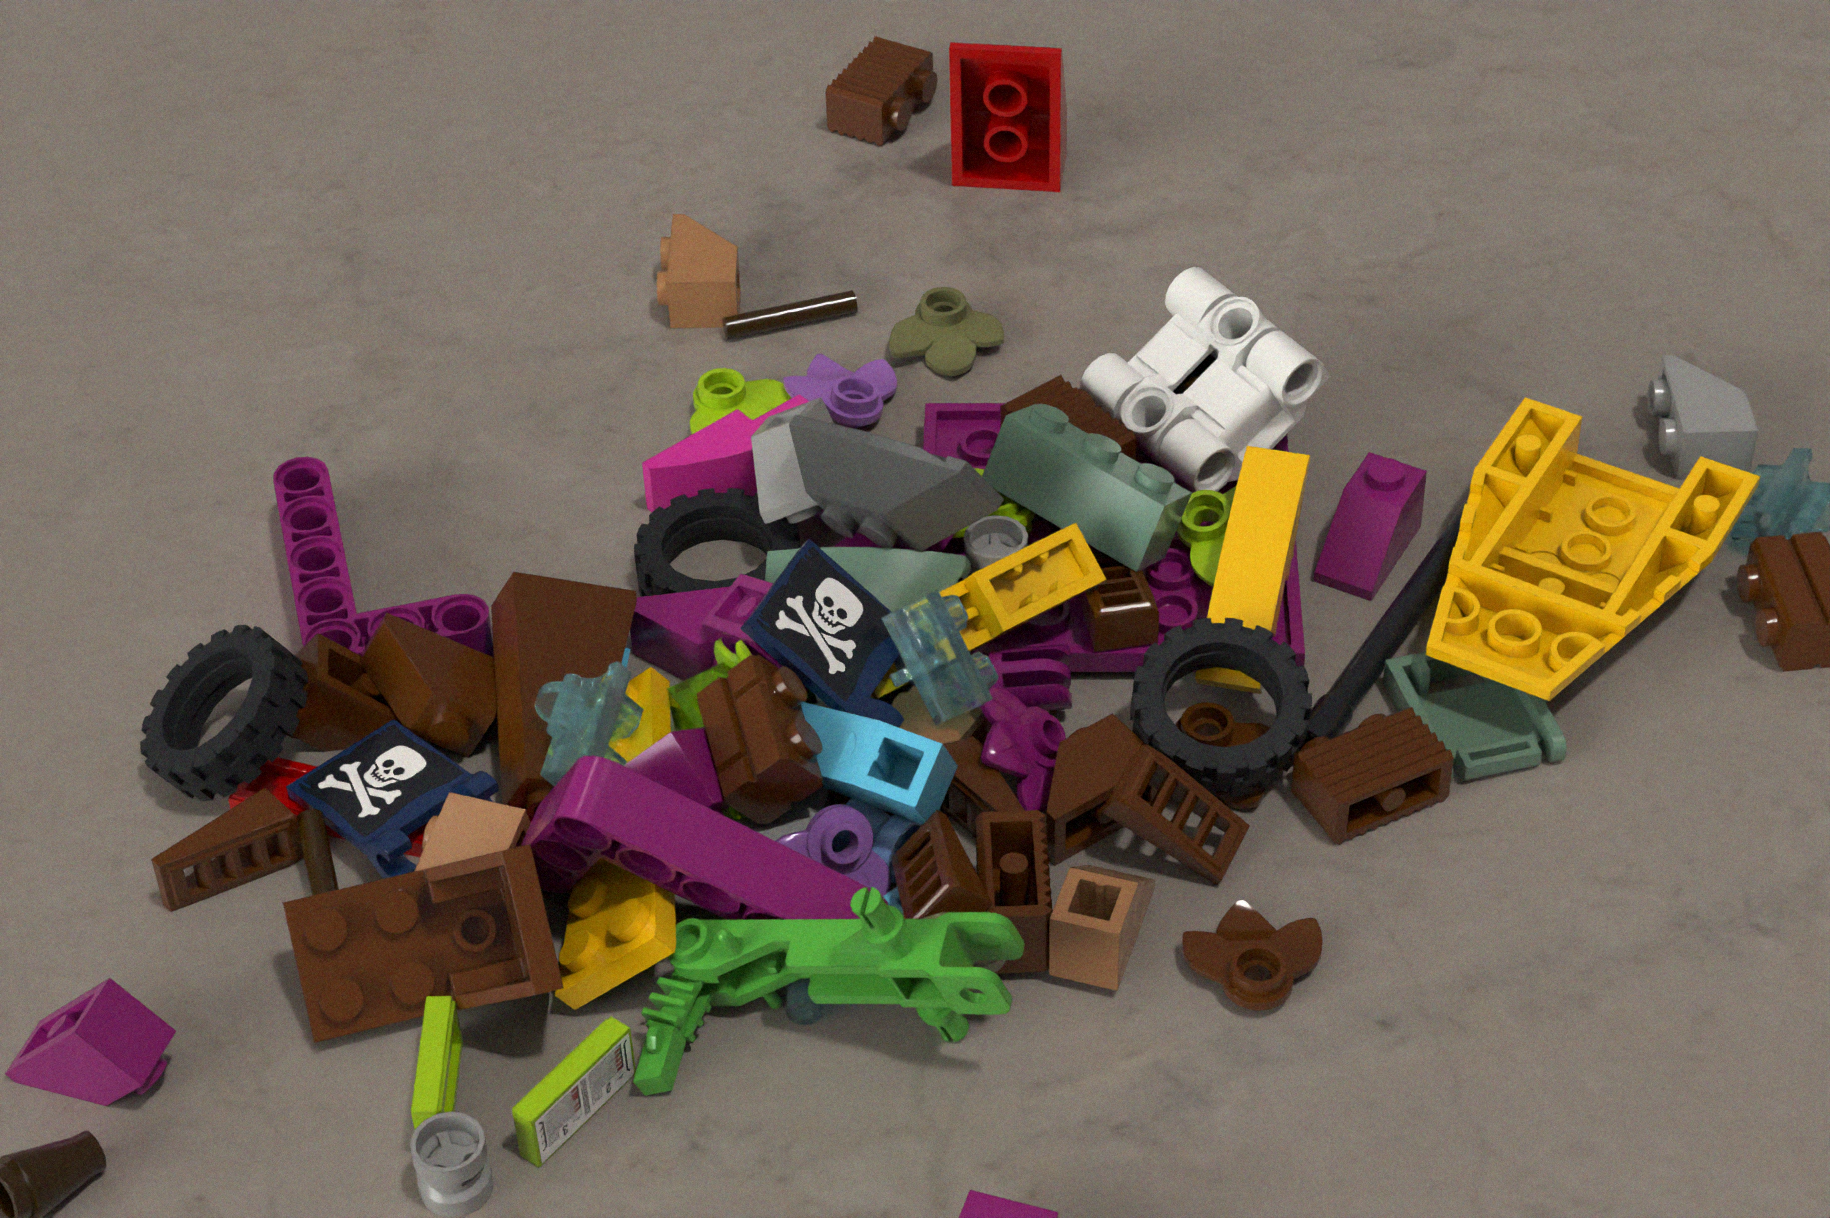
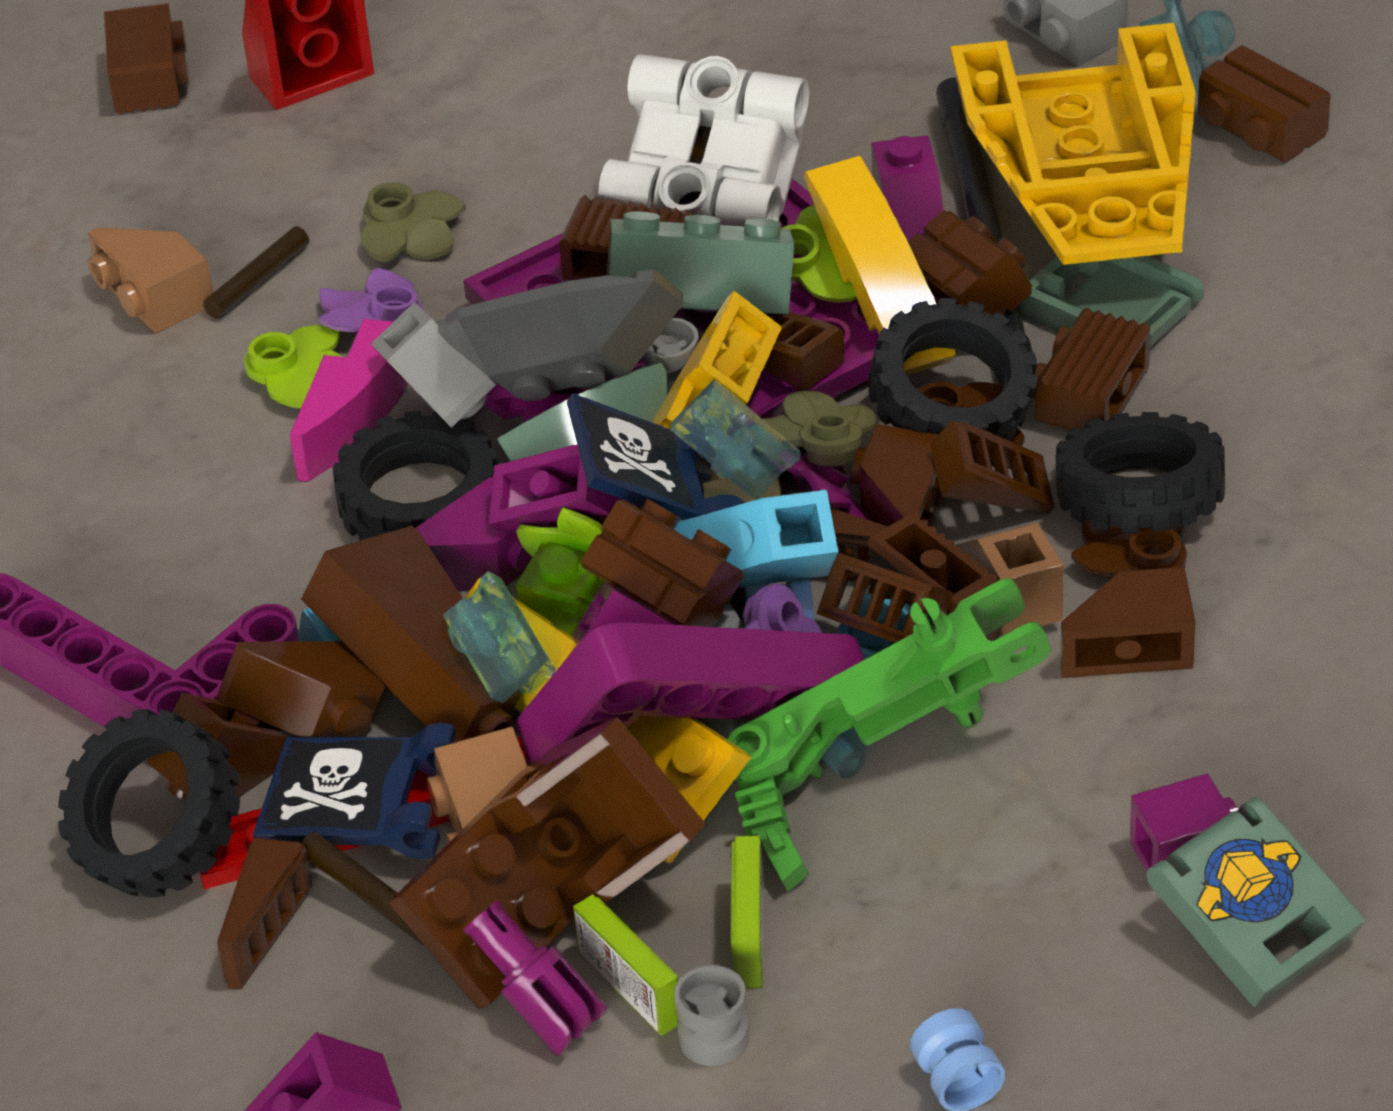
camera: 35 degrees left, 0 degrees up
(343, 1028) = (537, 981): none -> magenta arm
(1057, 688) = (823, 427): none -> olive plate
(1160, 1031) = (1131, 626): none -> reddish brown slope
(1301, 928) = (1140, 501): none -> black tyre
(1343, 615) = (968, 265): none -> reddish brown brick

